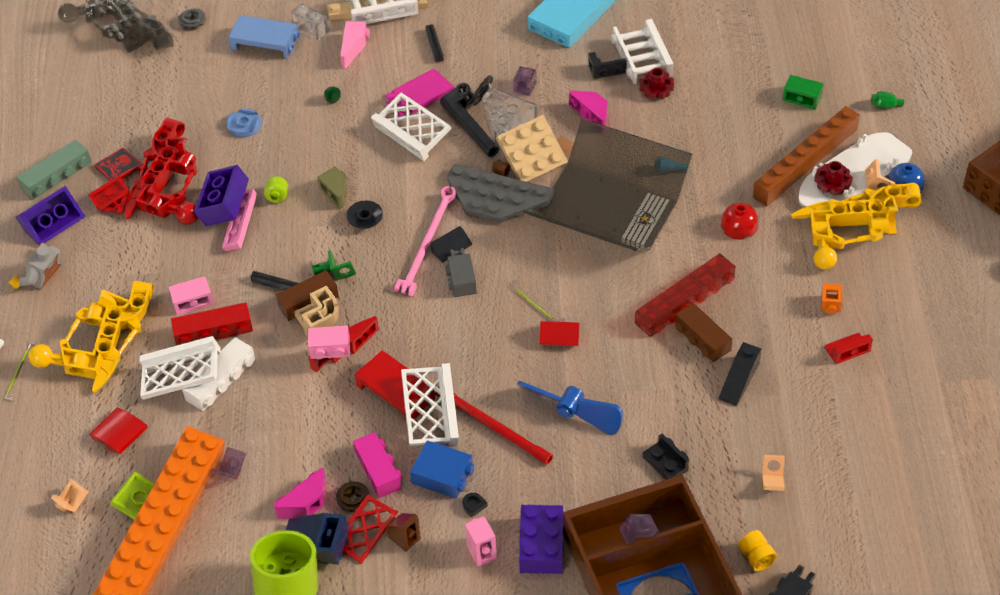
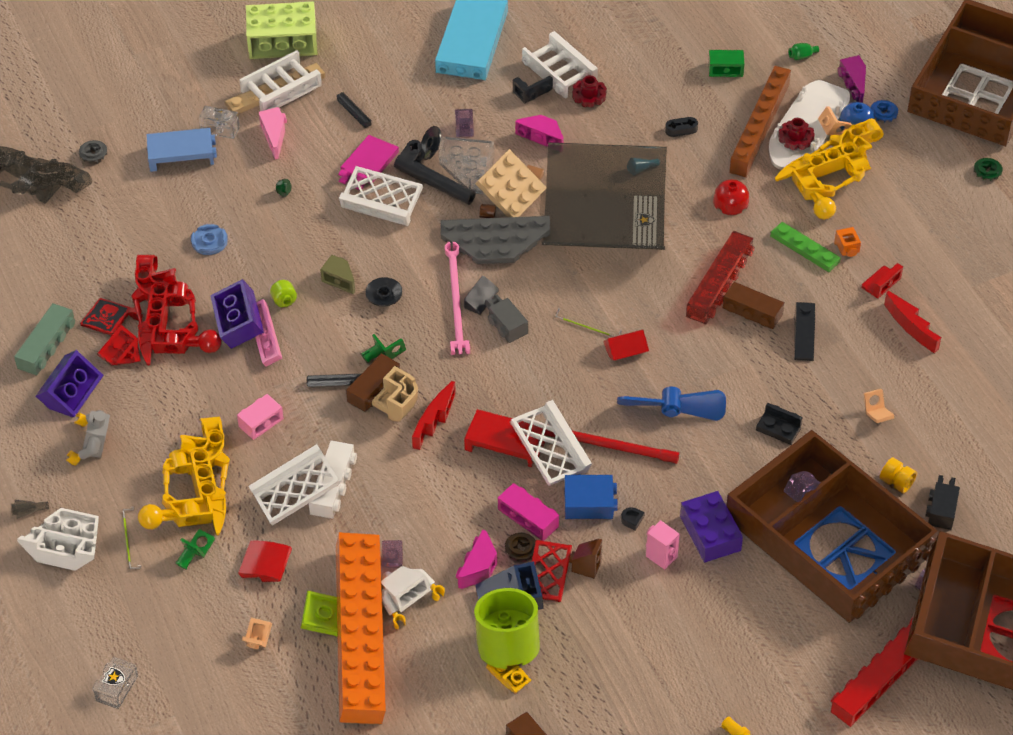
camera: 25 degrees left, 0 degrees up
(64, 398) = (191, 548): none -> green bracket
(216, 322) = (297, 437): red brick -> none
(221, 499) = (404, 588): none -> white torso
(328, 342) = (427, 416): bright pink brick -> none
(728, 140) = (681, 126): none -> black beam
(788, 291) = (805, 246): none -> bright green plate
(854, 394) = (914, 325): none -> red slope
(925, 138) = (854, 74): none -> magenta slope
(938, 174) = (881, 106): none -> blue gear

